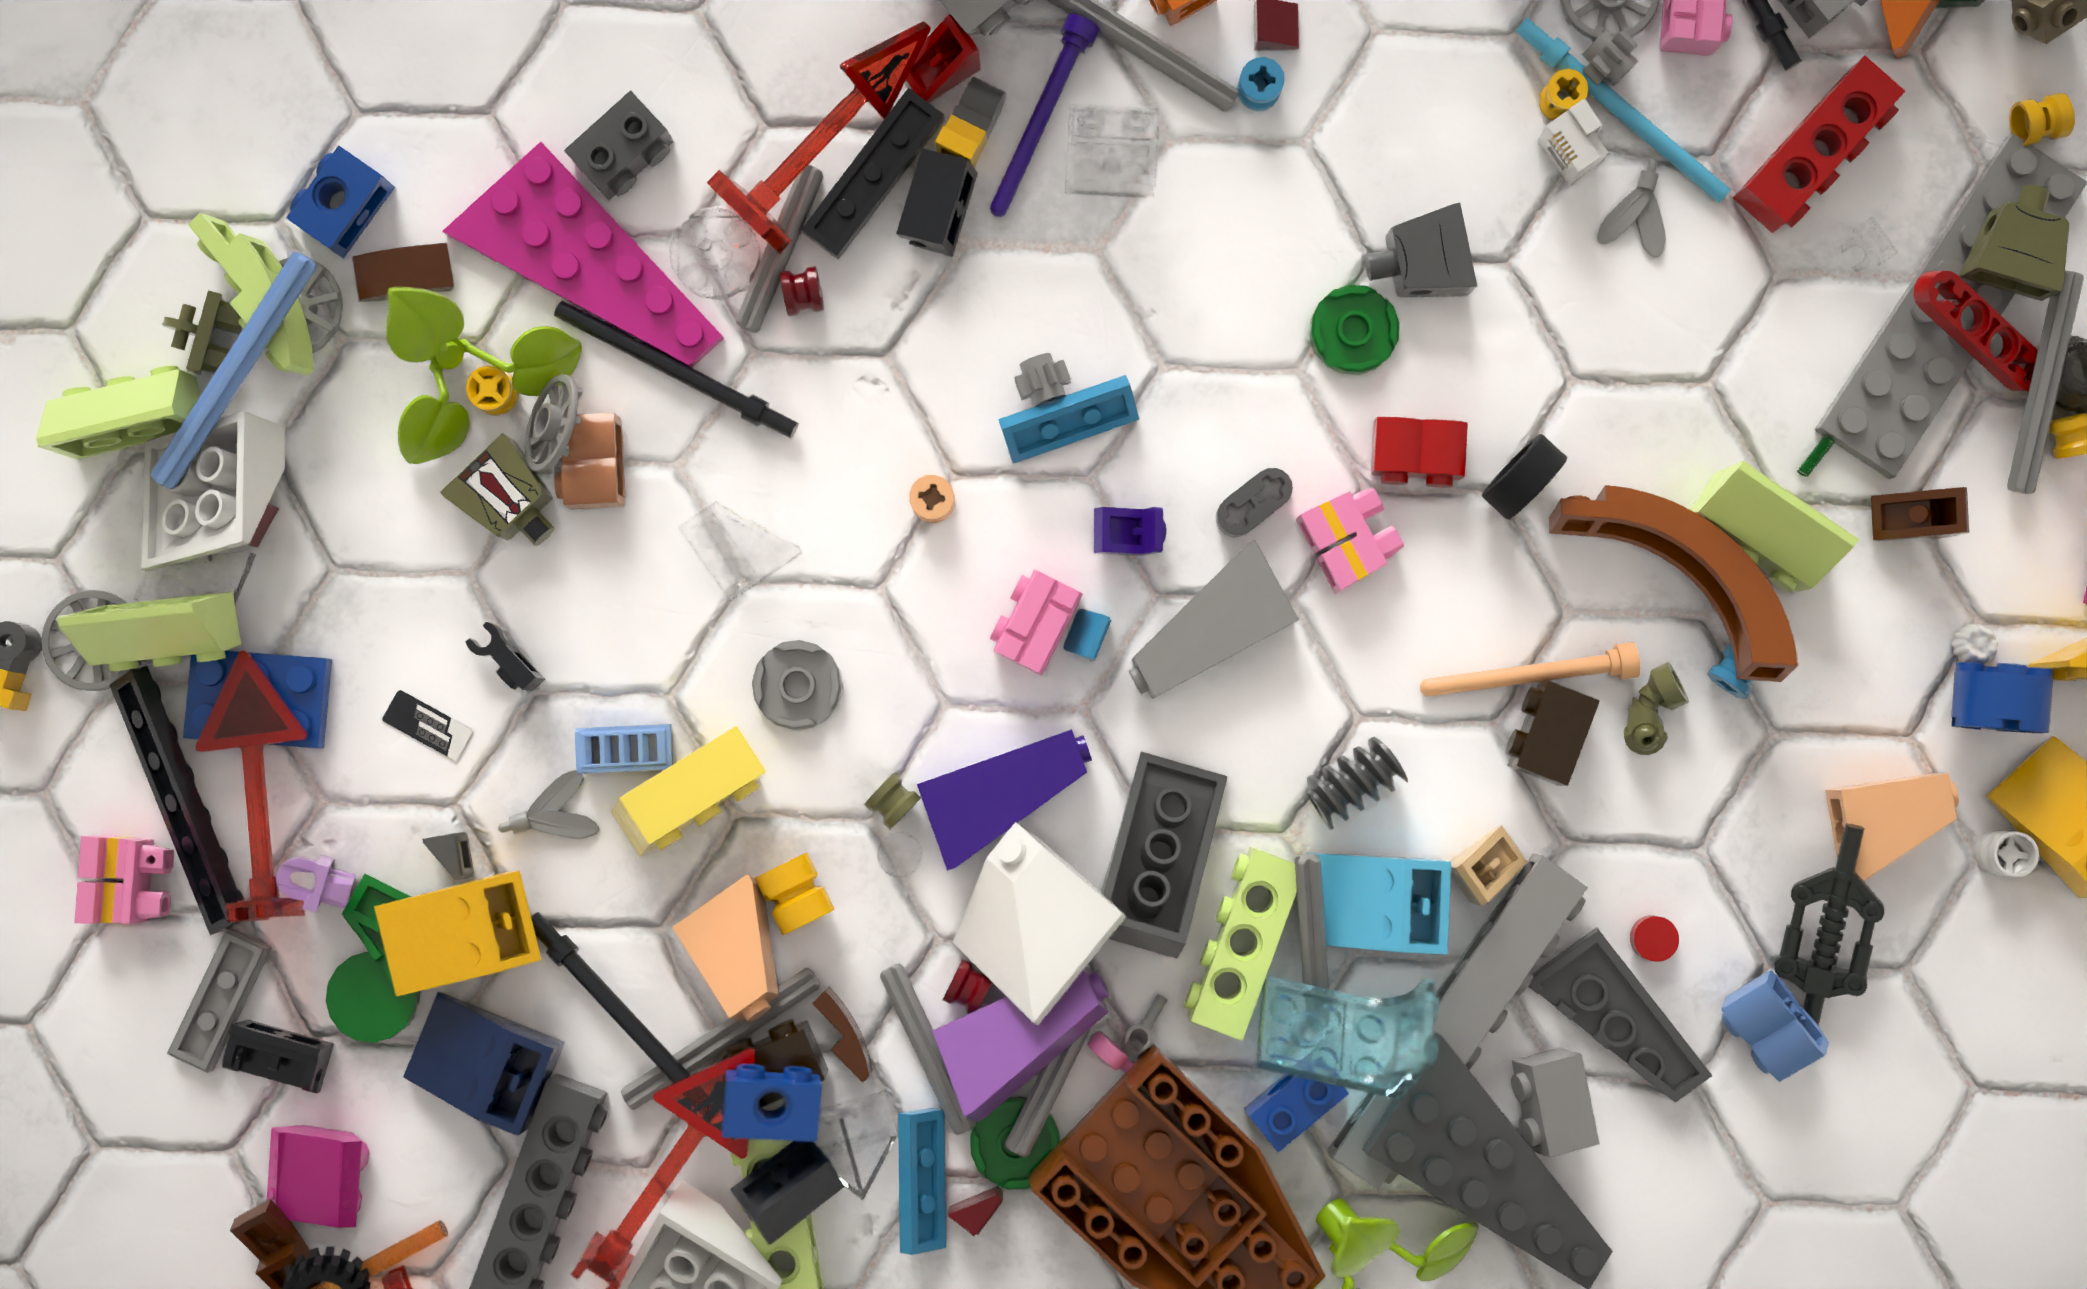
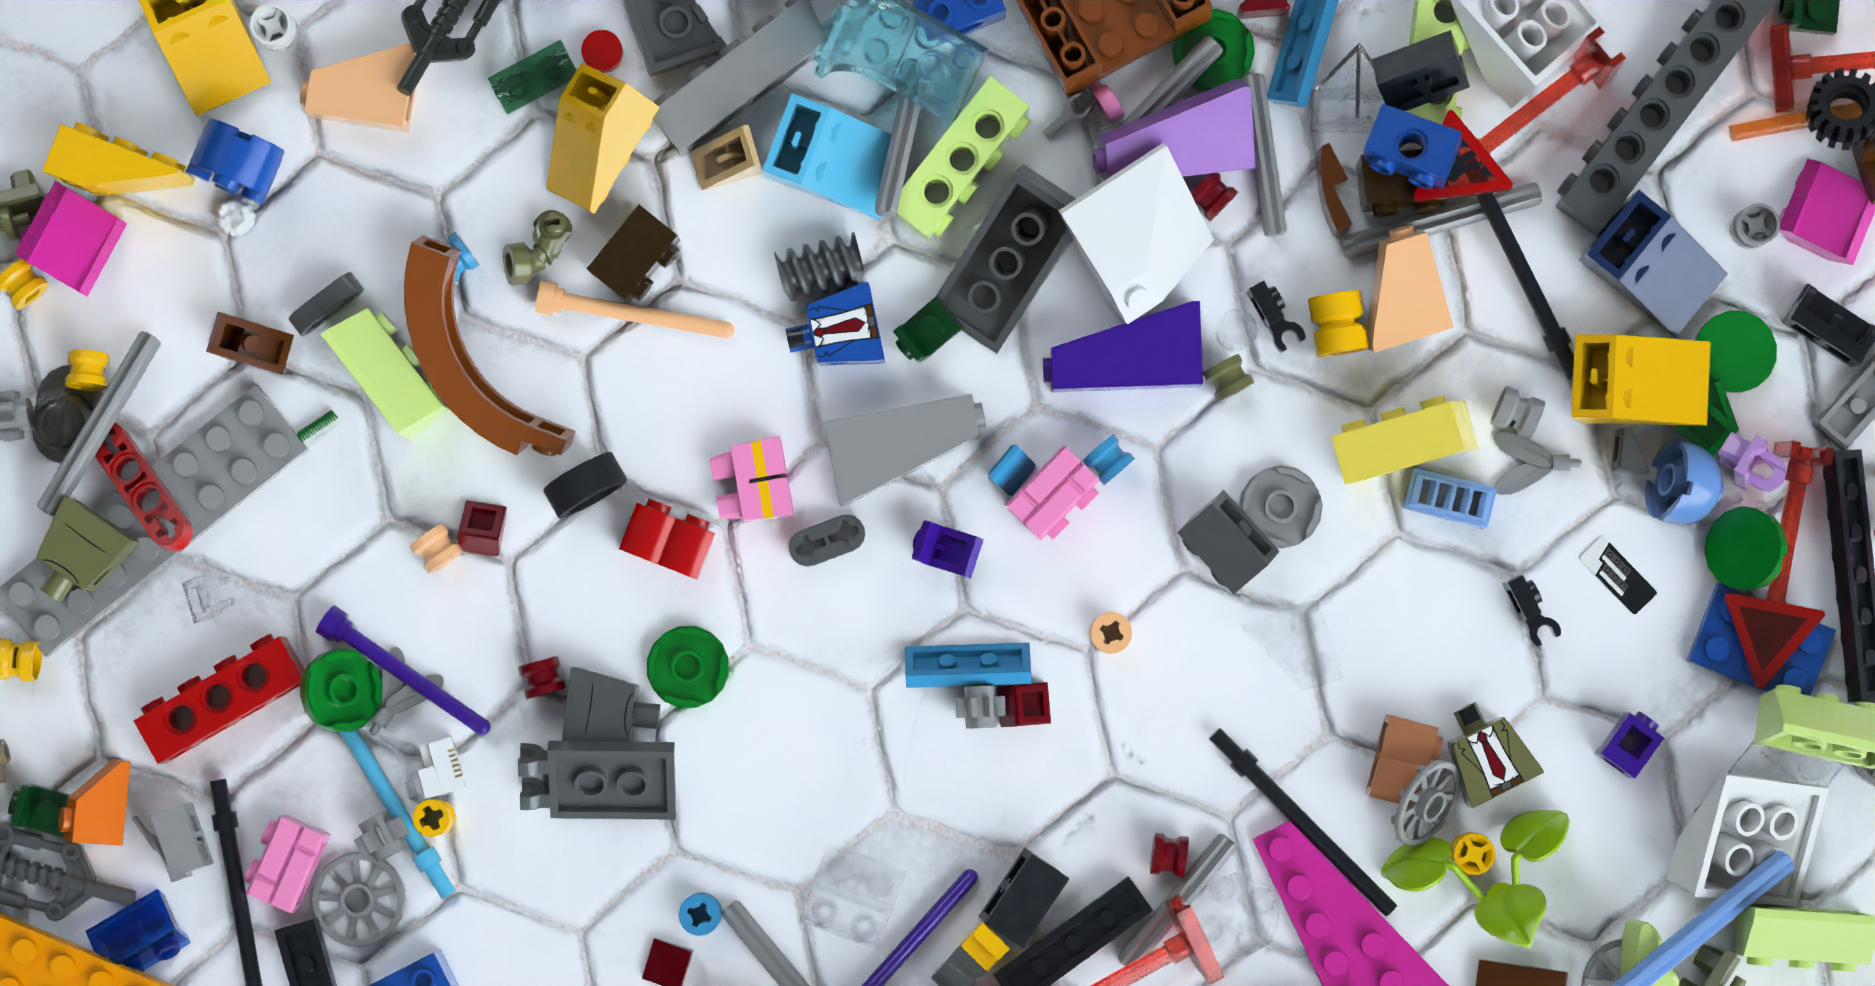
camera: 155 degrees left, 0 degrees up
(298, 791) = (1745, 548): none -> green tile
(350, 541) = (1647, 741): none -> dark purple brick
(379, 1140) = (1761, 221): none -> light grey wheel
(382, 839) = (1685, 483): none -> medium blue cylinder
(579, 859) = (1517, 412): none -> light grey wheel
(839, 628) = (1228, 542): none -> dark grey brick
(873, 889) = (1269, 306): none -> black plate
(990, 676) = (1108, 459): none -> dark azure wheel
(996, 398) = (1025, 704): none -> dark red slope
(1221, 750) = (927, 331): none -> dark green bracket
(1311, 724) = (840, 329): none -> torso
(1408, 183) = (600, 779): none -> dark grey tile
(1500, 269) = (542, 677): none -> dark red wheel
(1611, 404) = (482, 528): none -> dark red slope
(1635, 844) = (595, 135): none -> yellow slope
(1653, 366) = (436, 548): none -> light nougat wheel
(1702, 190) = (341, 690): none -> green tile
(1717, 888) = (533, 77): none -> clear green hinge
(1725, 256) = (338, 627): none -> dark purple piece
(1852, 582) = (326, 304): none -> dark grey beam

